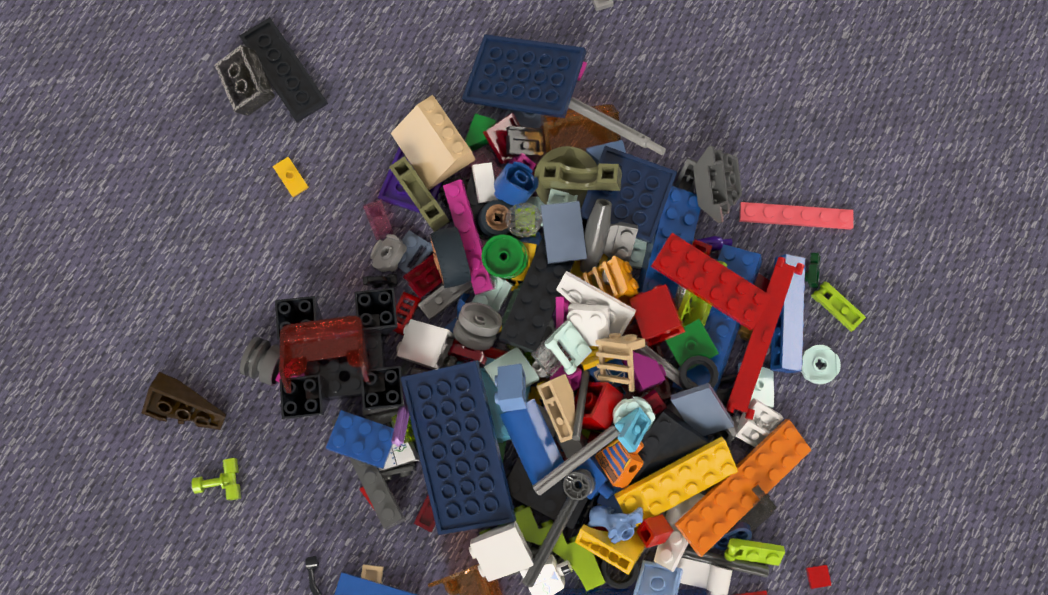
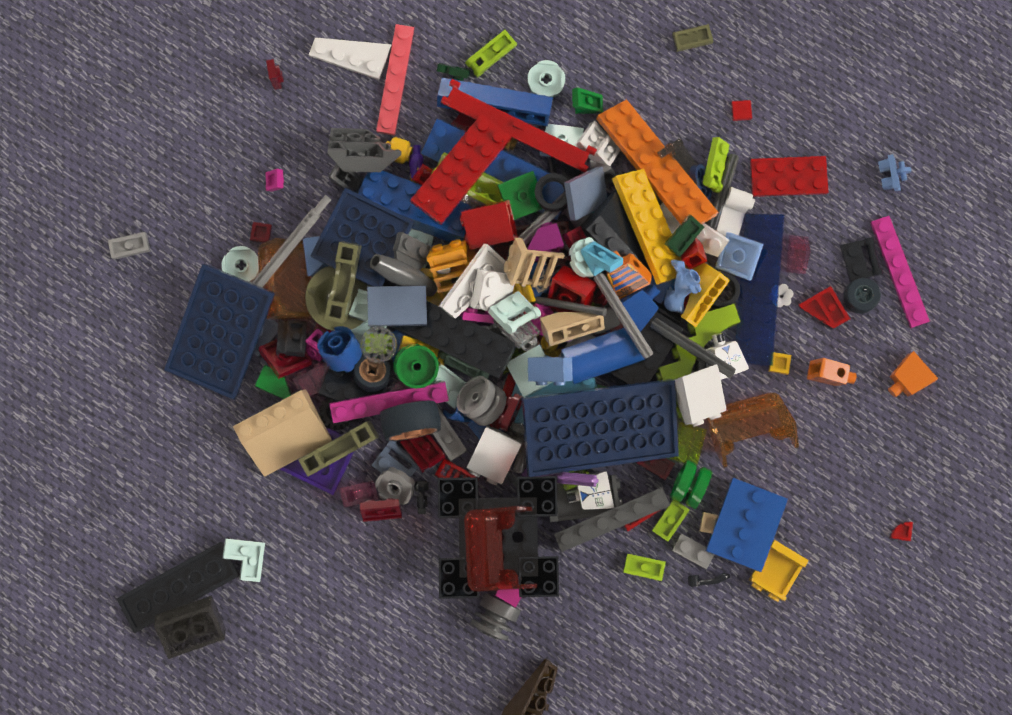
camera: 85 degrees left, 5 degrees up
(226, 480) = (609, 661): lime bar -> none
(290, 177) = (299, 585): yellow plate -> none
(318, 126) = (251, 555): none -> light aqua plate
(323, 509) = (644, 567): none -> lime plate
(342, 558) = (692, 551): none -> light grey plate
(361, 439) = (584, 521): blue plate -> none
(363, 236) = (380, 510): none -> dark red plate
(372, 533) = (670, 520): none -> lime plate
(410, 546) = (688, 483): none -> green wheel
(453, 547) = (689, 443): none -> clear neon green plate
(484, 182) = (333, 381): white tile -> none
(572, 488) = (645, 323): dark grey wheel -> none
(597, 84) = (248, 257): none -> light aqua plate
(626, 106) = (260, 232): none -> dark red tile
(670, 520) = (684, 235): none -> dark green plate
(678, 112) = (274, 180): none -> dark pink plate
(726, 228) = (405, 148): none -> yellow head
(782, 98) = (275, 74): none -> dark red plate
(802, 408) = (586, 101): none -> green slope
(814, 176) = (352, 55): none -> white wing
(890, 516) = (692, 38): none -> olive plate

